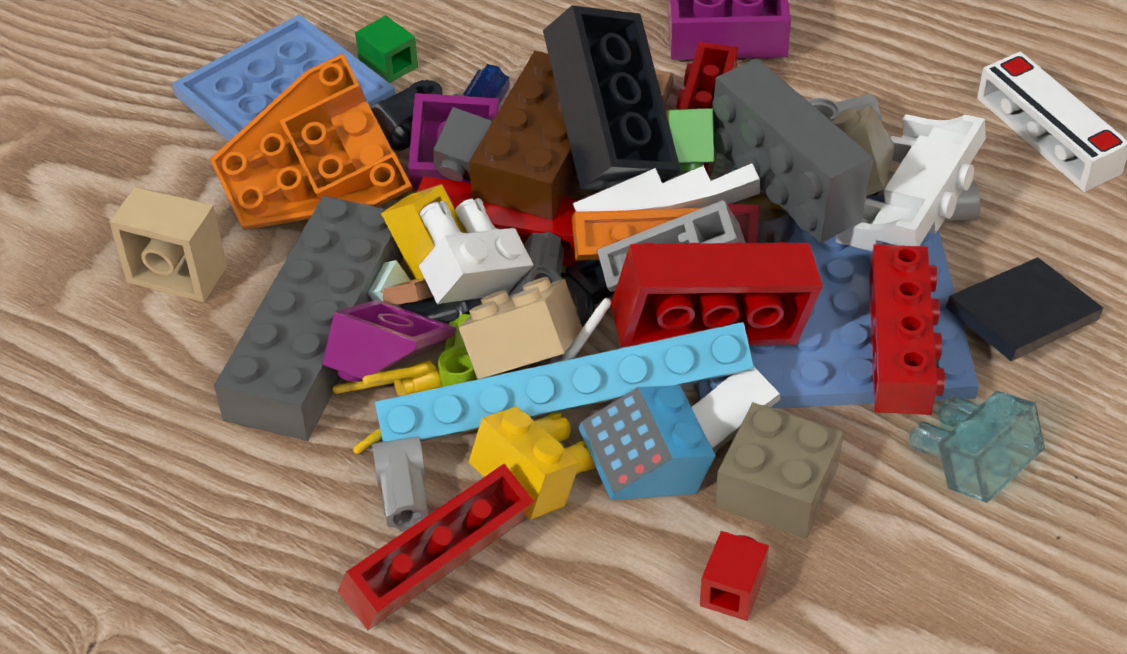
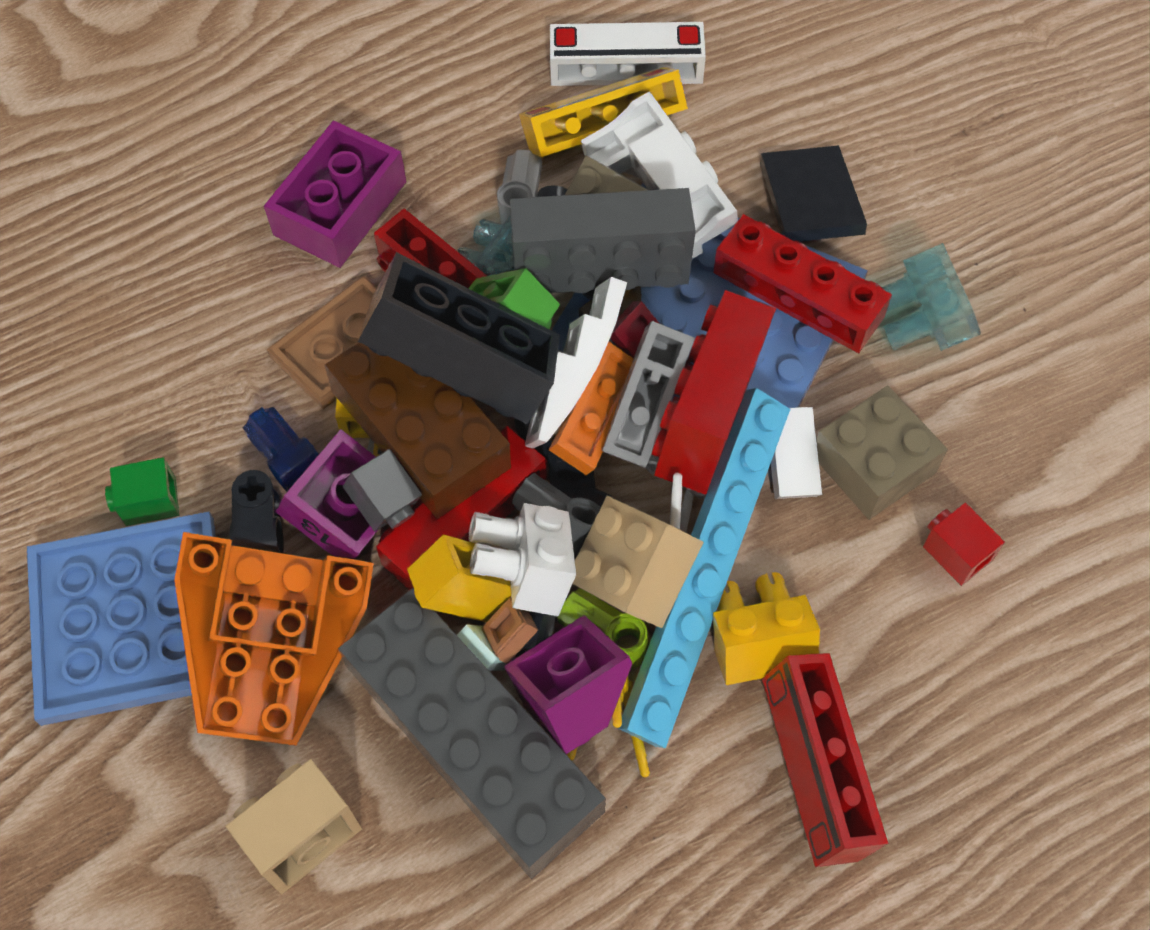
camera: 60 degrees left, 15 degrees up
(401, 474) = (704, 747): light grey piece -> none
(648, 444) = (804, 533): dark azure slope -> none
(1004, 143) = (577, 117): none -> yellow brick

